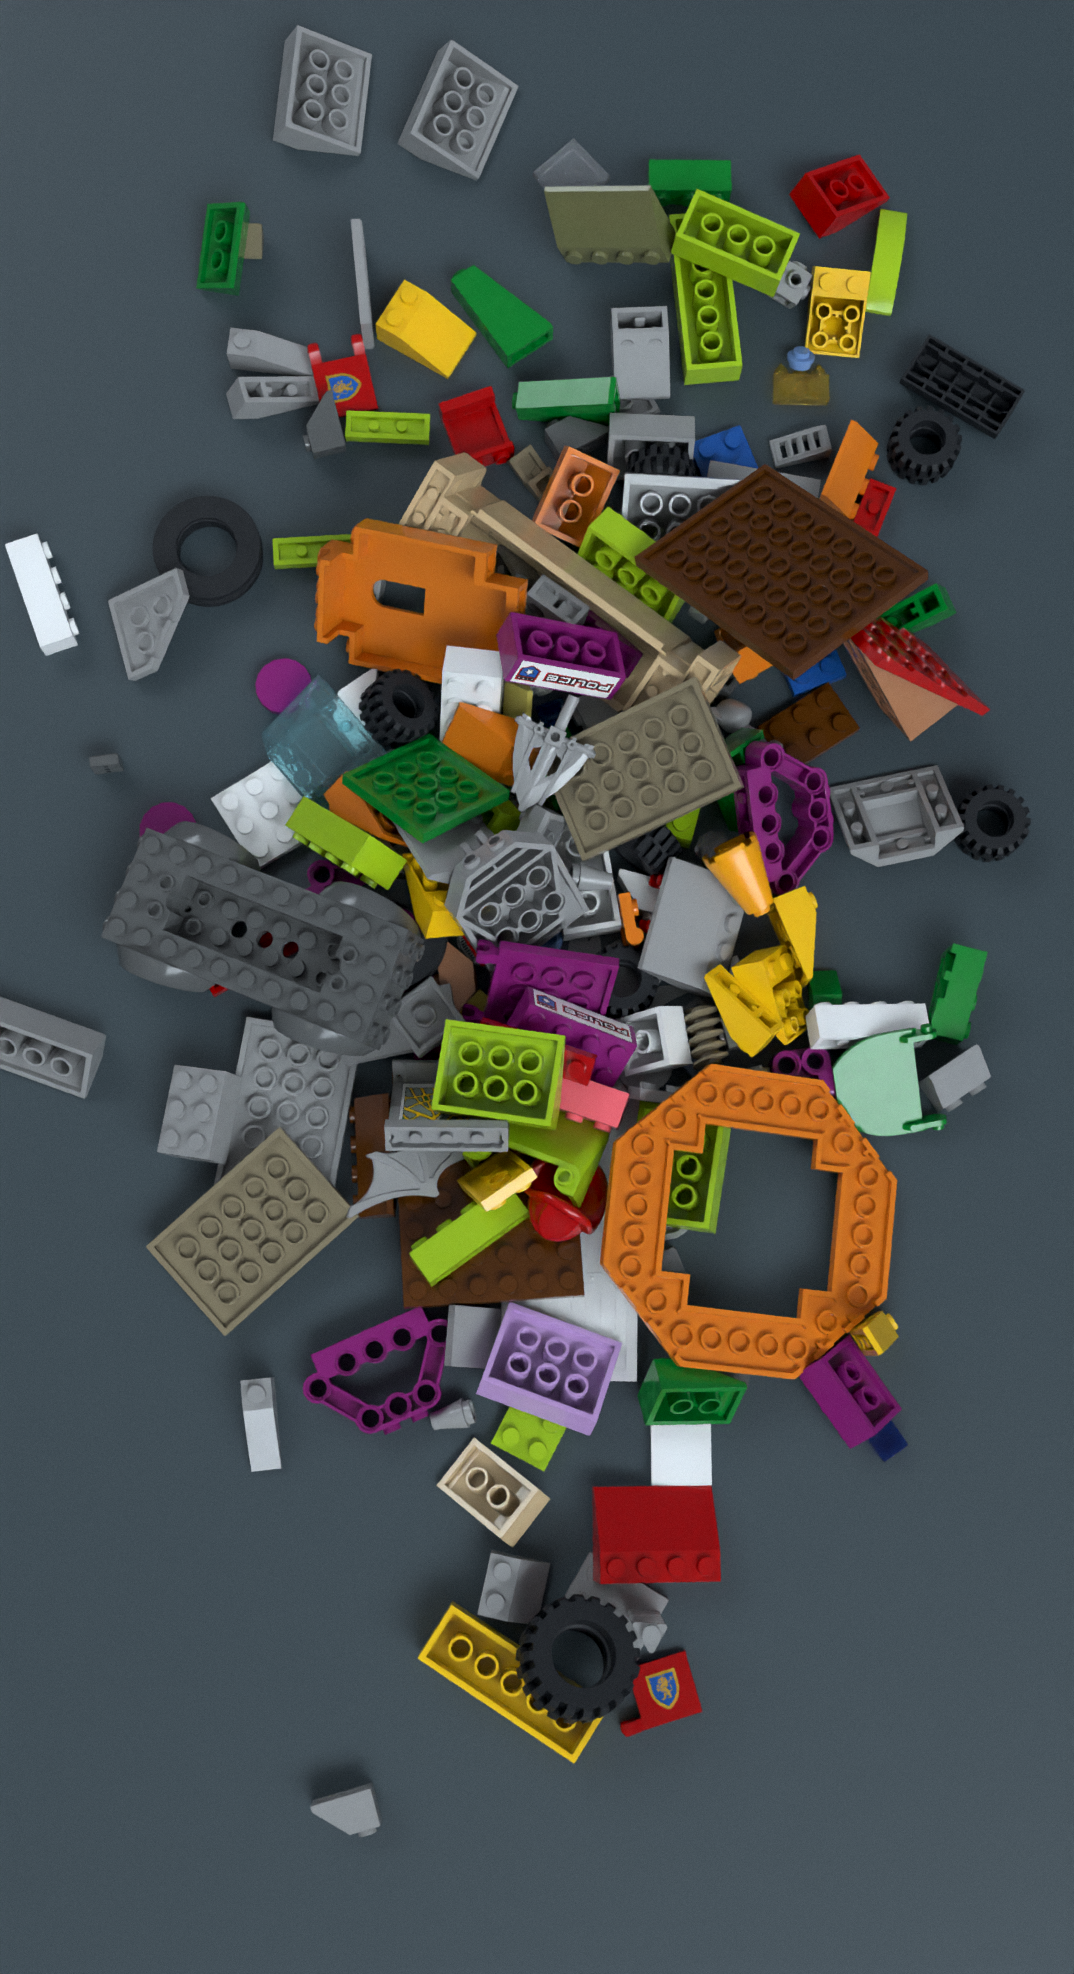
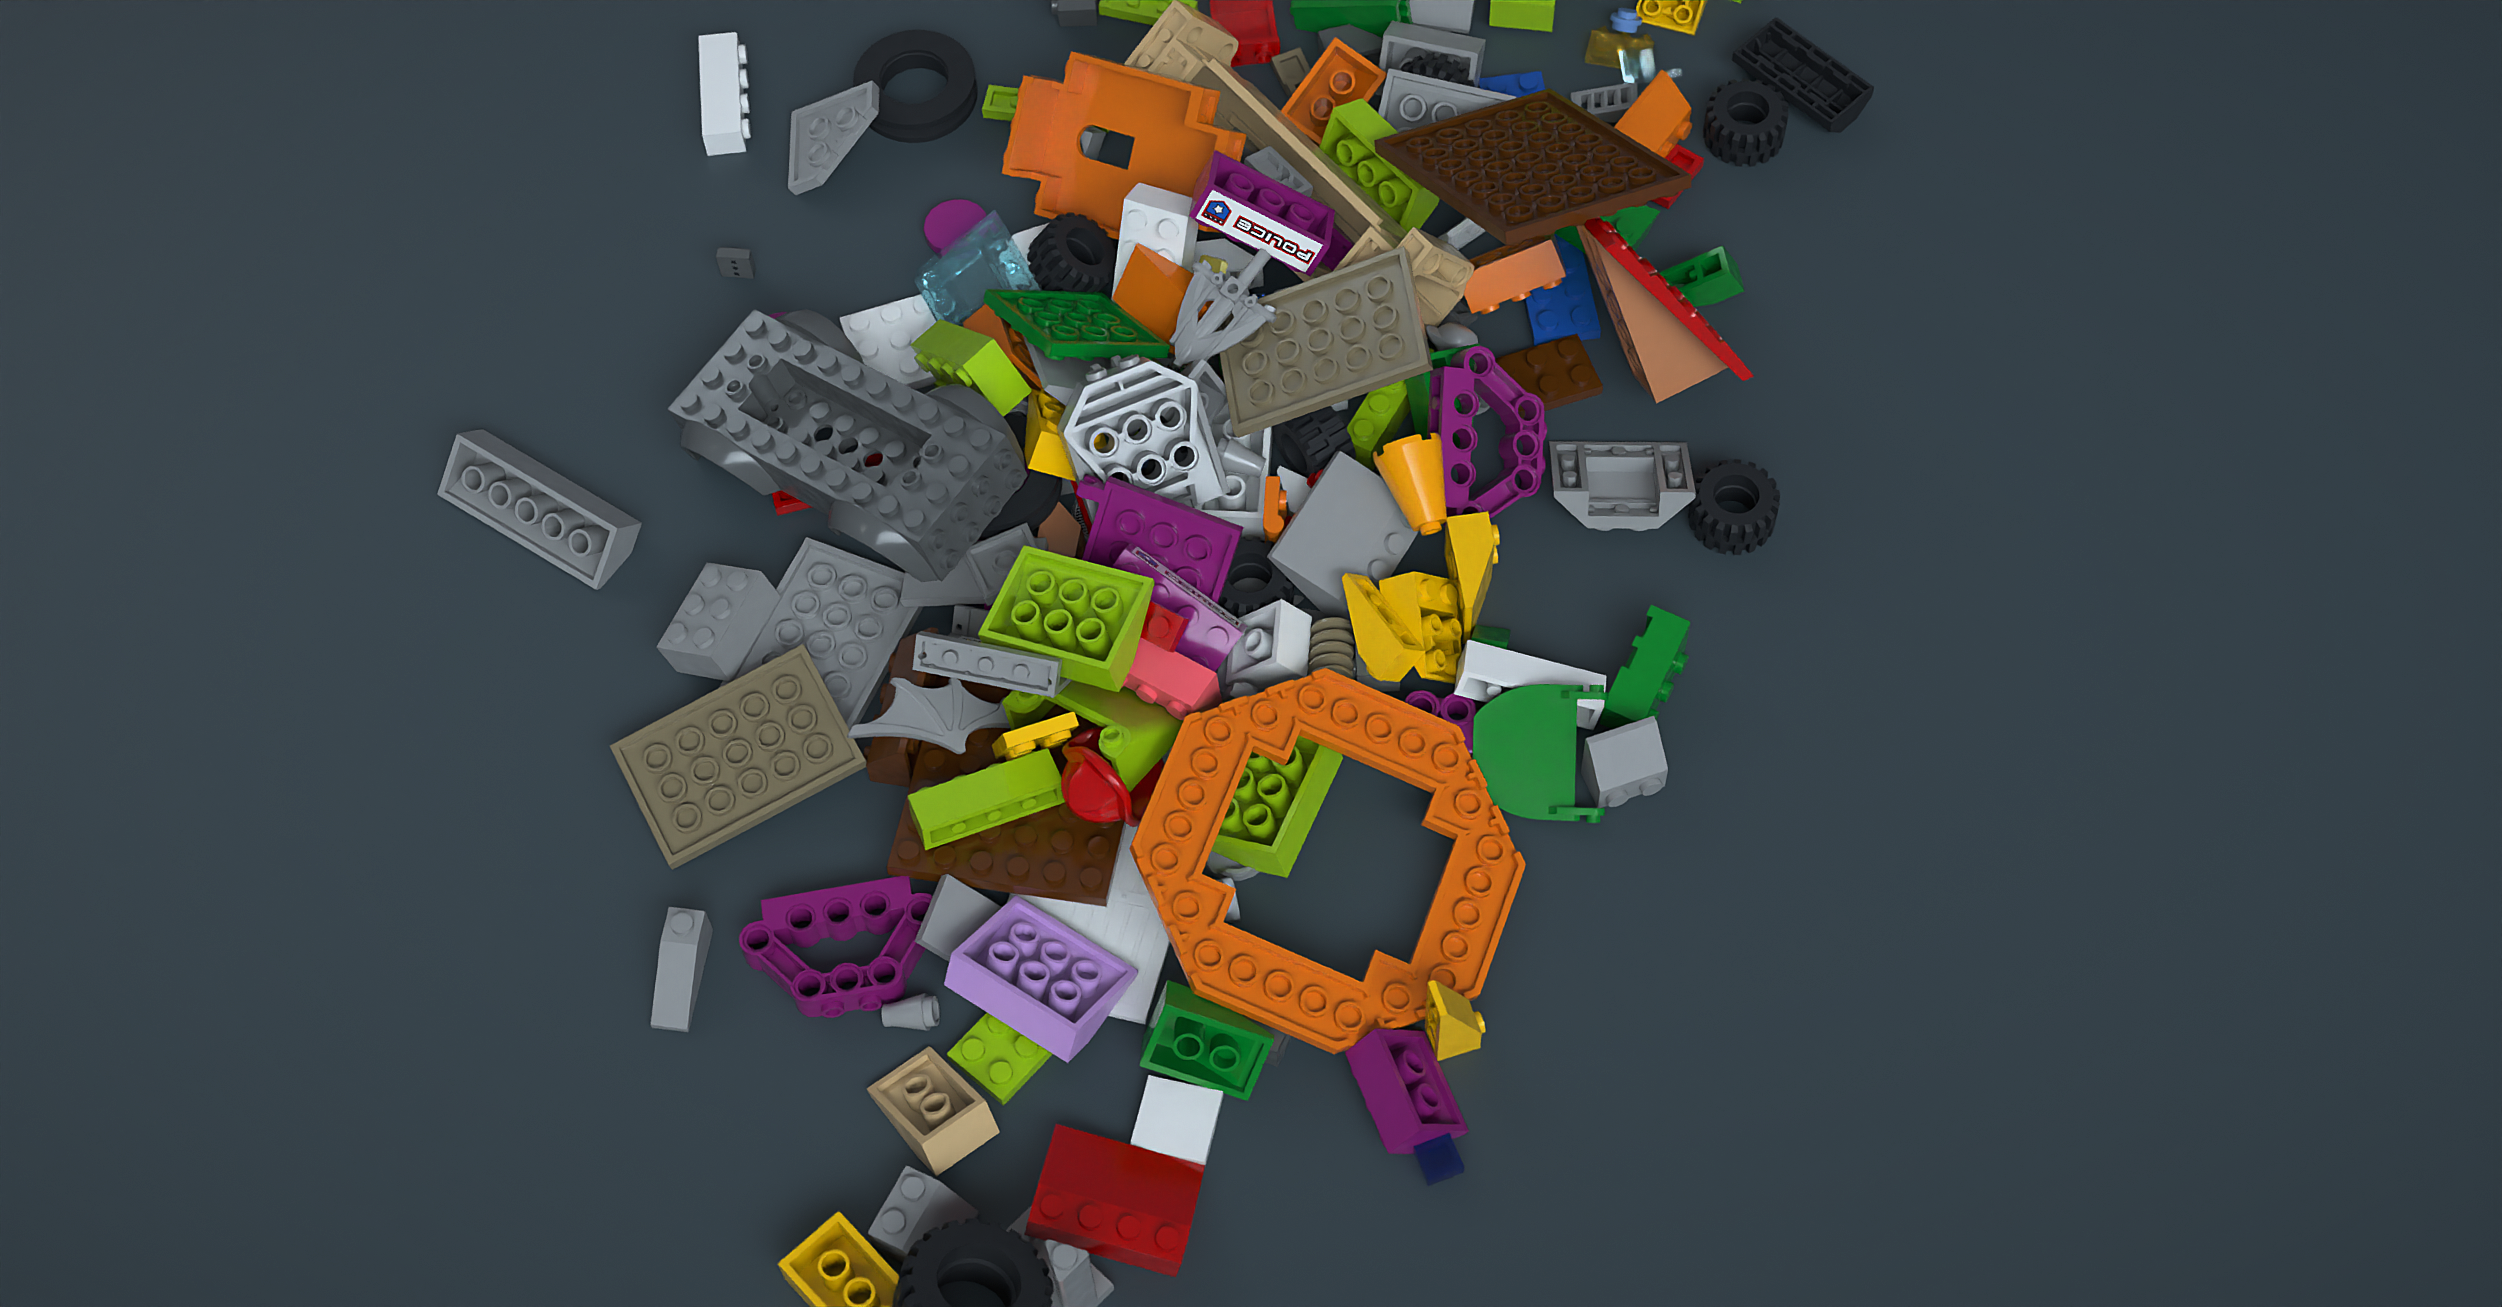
camera: 20 degrees right, 20 degrees down
(831, 411) = (1639, 66): none -> clear light blue panel

